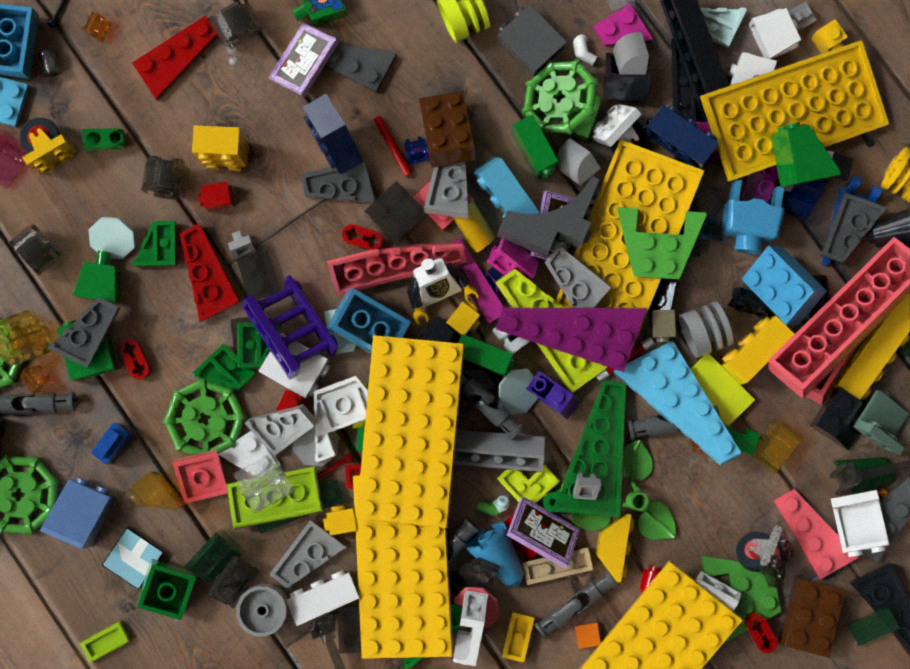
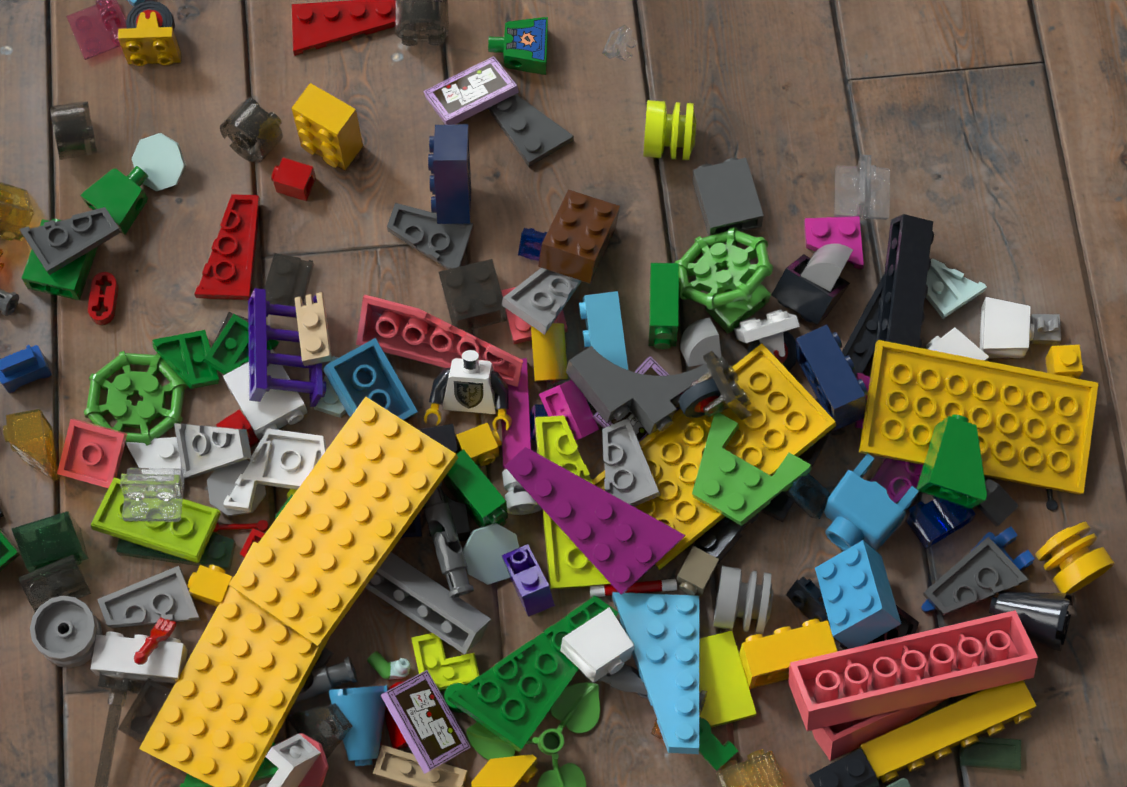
camera: 30 degrees right, 15 degrees down
(103, 139) = (212, 62): green leg -> none
(159, 246) = (202, 197): green wing -> none
(241, 245) = (288, 241): light grey tile -> none
(302, 303) = (313, 330): none -> tan hinge
(328, 574) = (159, 633): none -> red piece
(364, 233) = (425, 297): red beam -> none
(392, 146) = (512, 231): red bar -> none
(581, 50) = (776, 238): white arm -> none
(586, 487) = (500, 691): light grey tile -> none
(612, 195) = (715, 391): none -> clear smoke plate
(631, 417) = (598, 646): none -> white torso

